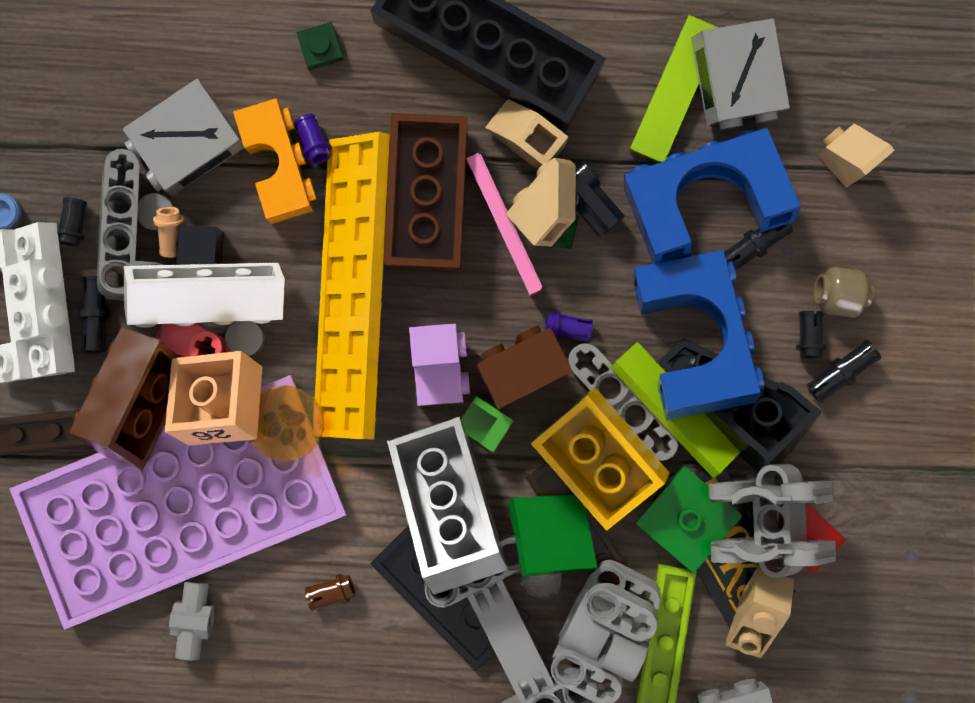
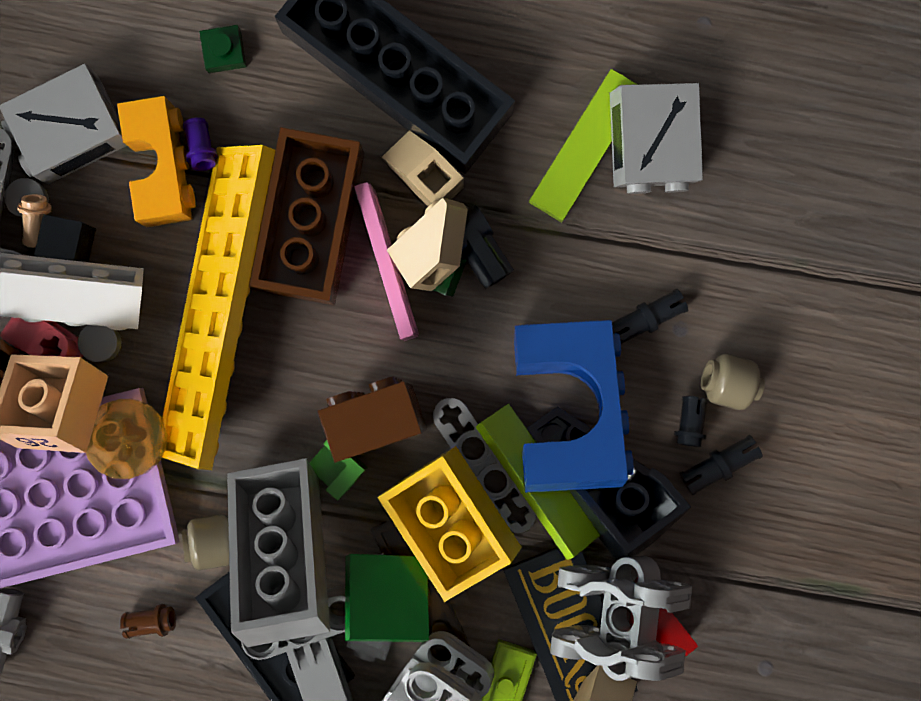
camera: 10 degrees right, 0 degrees up
(377, 509) = (206, 542): none -> dark tan head
(437, 364) = (293, 398): lavender brick -> none
(569, 326) = (438, 378): dark purple pin -> none
(686, 520) = (530, 600): green plate -> none
(745, 161) = (647, 229): blue arch -> none
(853, 153) = (763, 237): tan slope -> none

